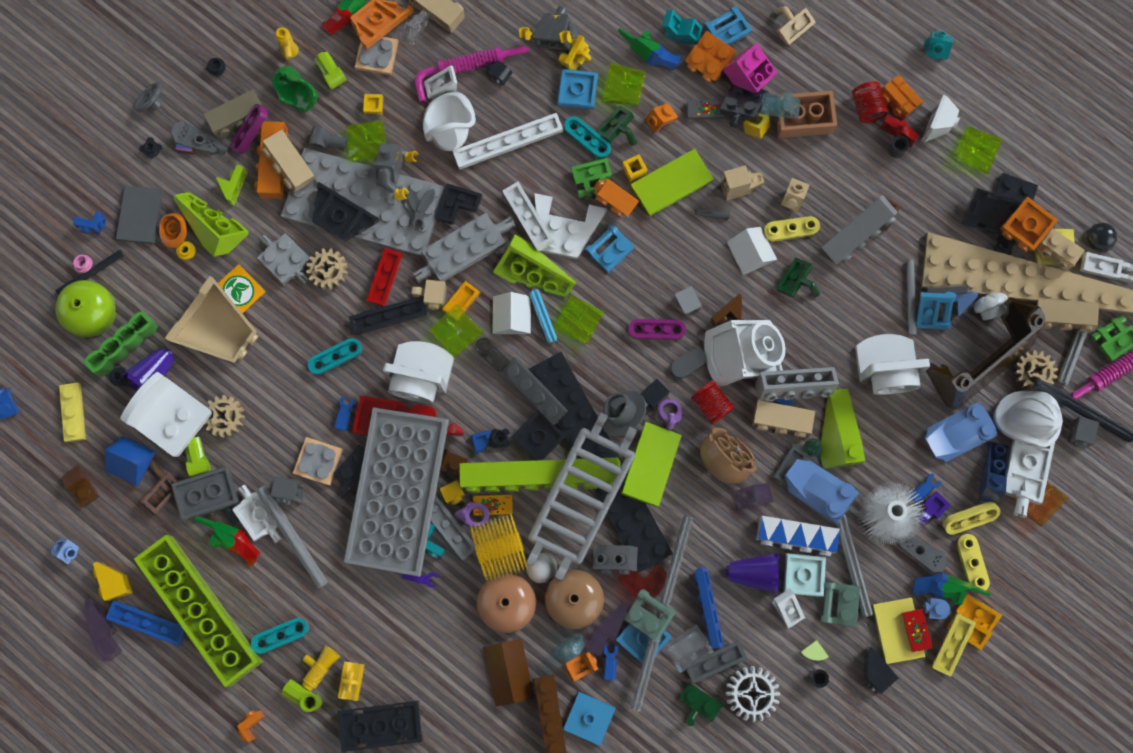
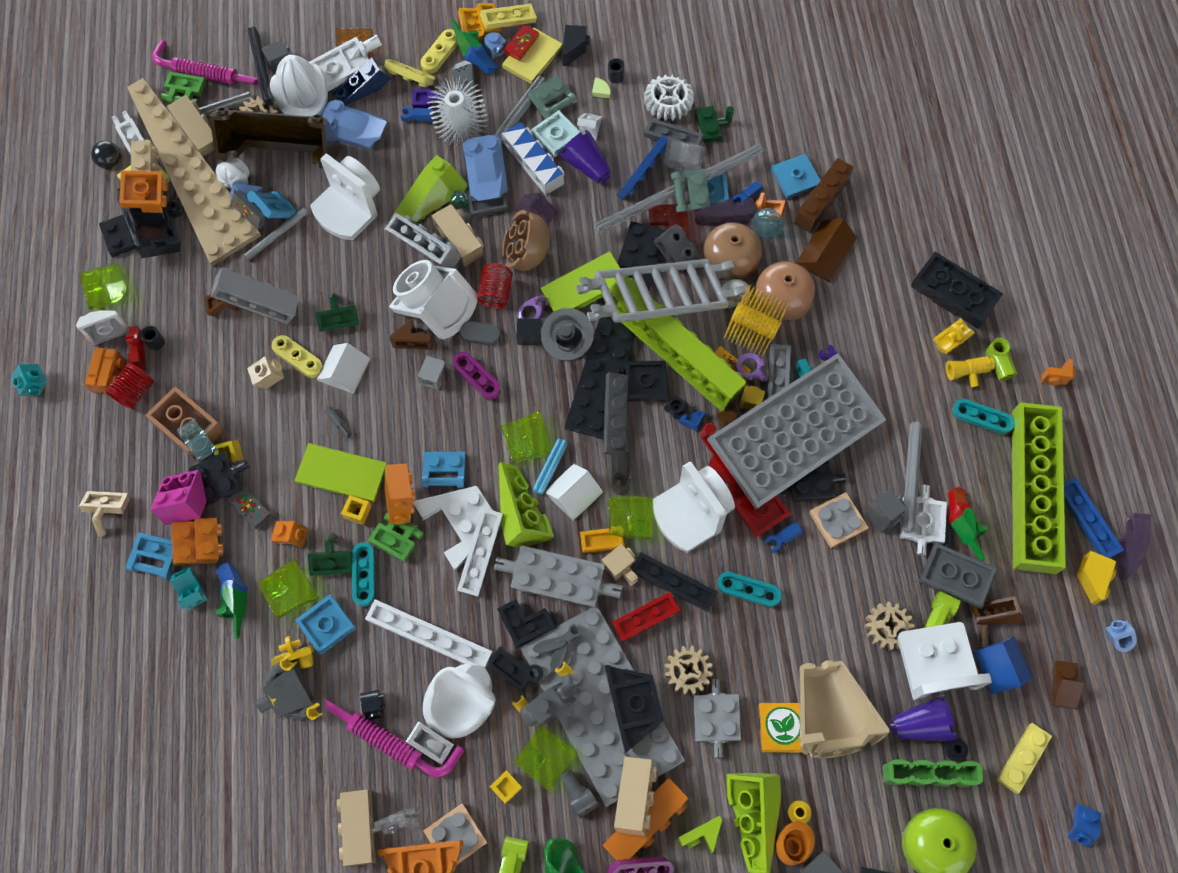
camera: 135 degrees left, 10 degrees down
(435, 170) = (513, 669): none -> black hinge
(739, 182) = (294, 419): tan hinge -> none

